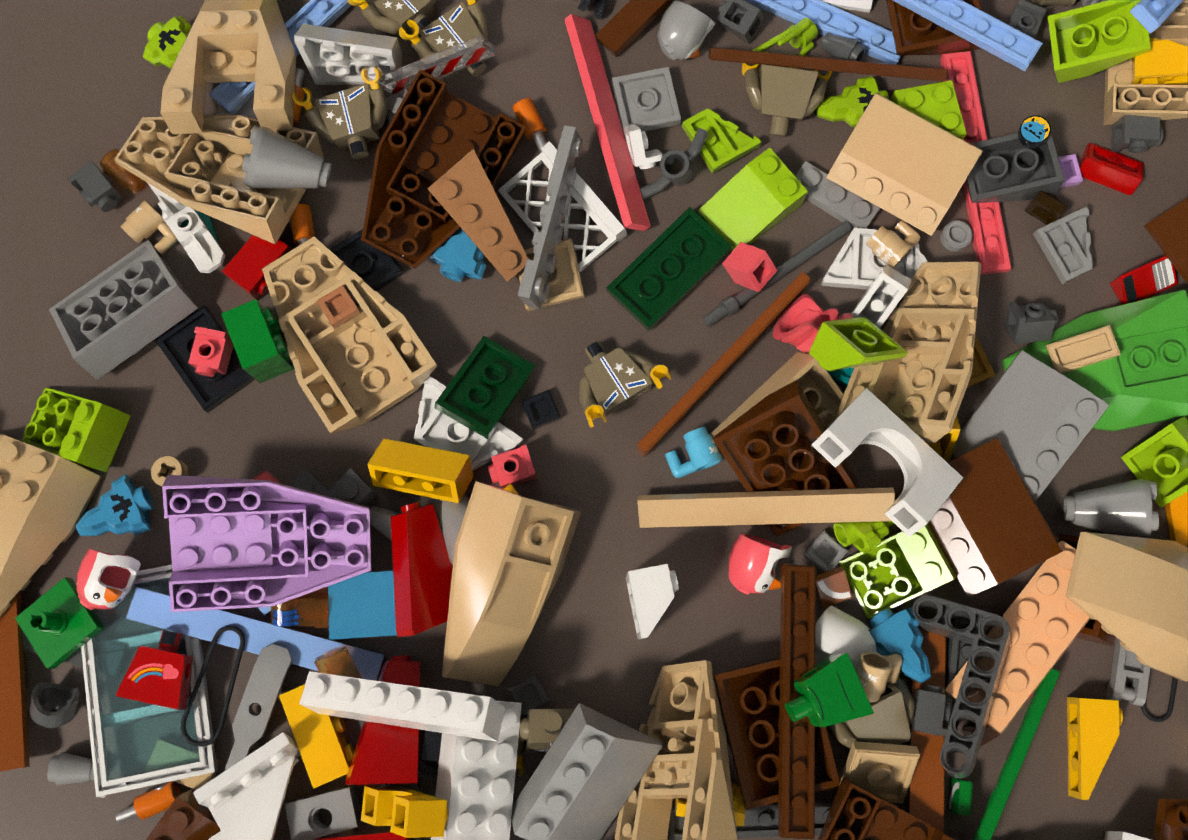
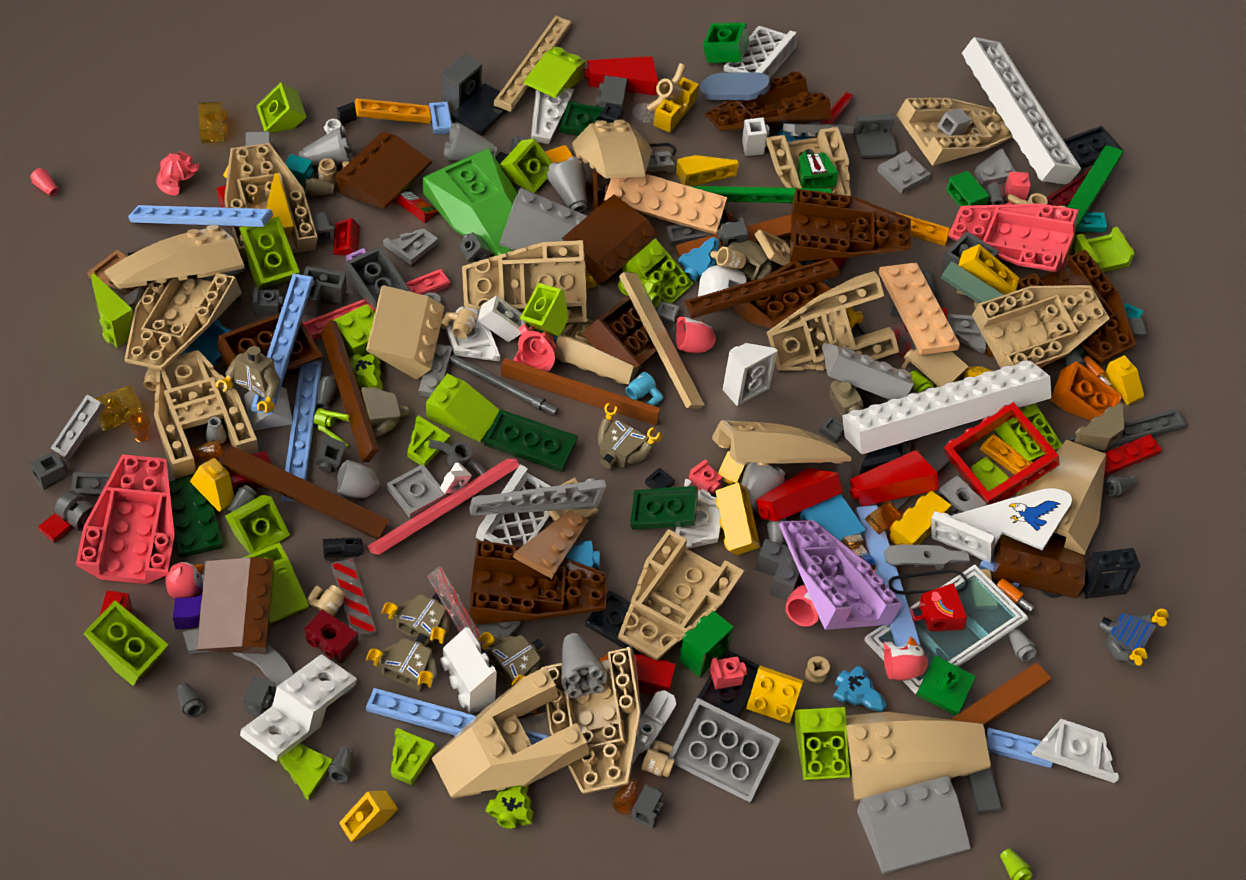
camera: 120 degrees left, 25 degrees down
(53, 704) = (992, 670): dark grey piece -> none
(154, 395) = (774, 694): none -> yellow plate
(338, 307) = (659, 602): nougat tile -> none
(403, 705) = (881, 456): white brick -> none
(405, 810) = (931, 428): yellow arch -> none
(529, 117) = (463, 552): orange piece -> none
(749, 267) = (510, 395): coral brick -> none
(829, 693) = (752, 268): green torso -> none
(832, 587) = (680, 298): dark orange tile -> none
(926, 474) = (608, 255): white arch -> none
(960, 796) = (766, 214): green tile -> none
(973, 677) = (706, 214): dark grey beam -> none
(1021, 90) = (326, 286): none -> dark grey brick
(1034, 131) = (354, 266): tile -> none
(1045, 208) = (394, 256): dark brown plate -> none
(1083, 350) = (485, 215): tan tile -> none

